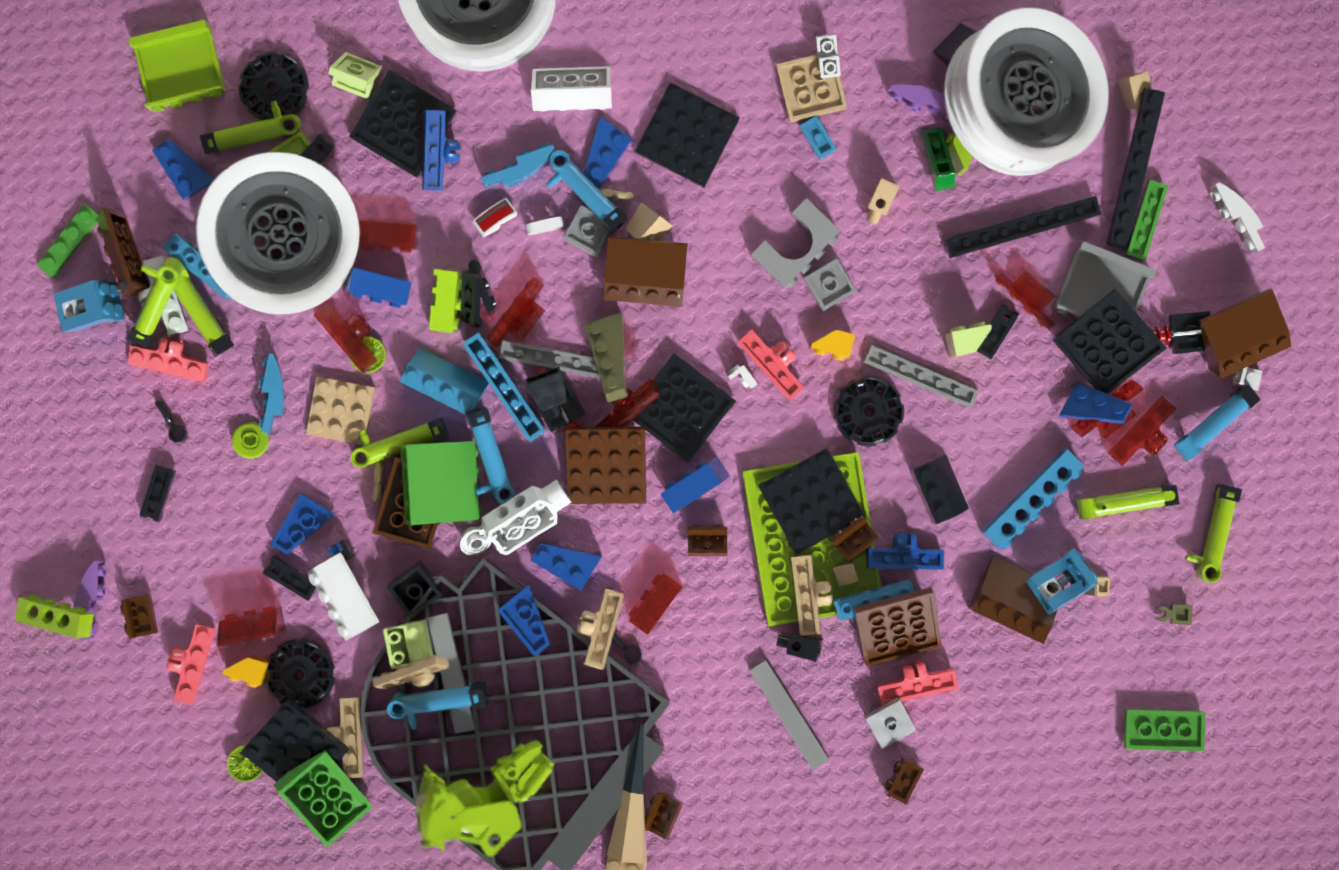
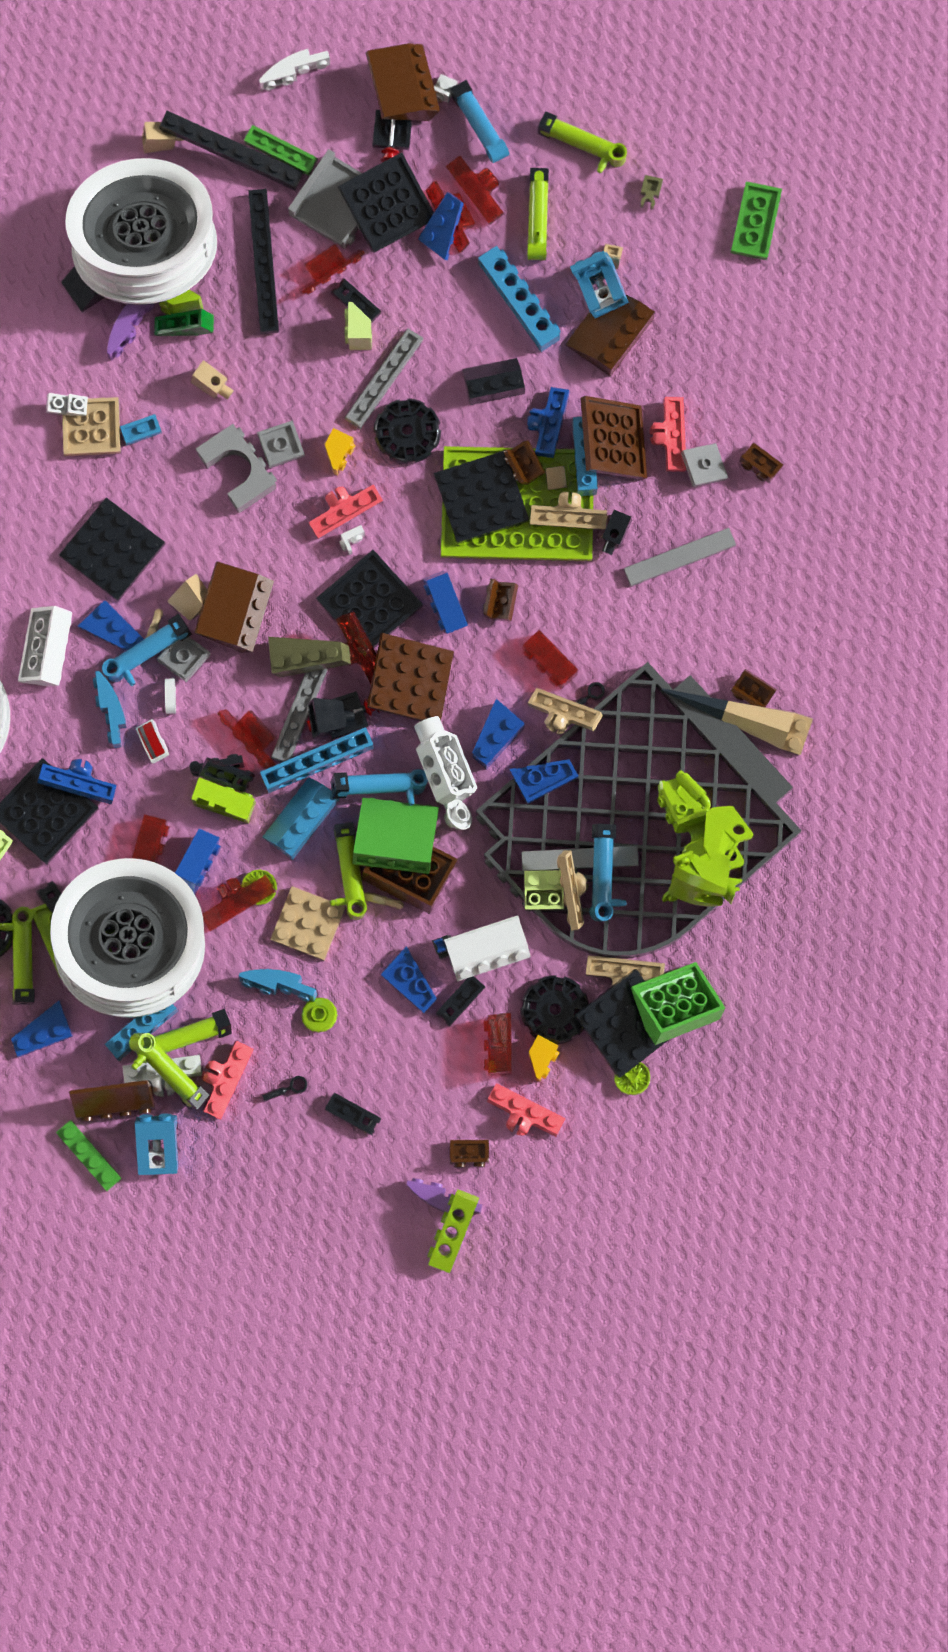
camera: 80 degrees left, 10 degrees down
(410, 586) = (489, 883): black slope -> none

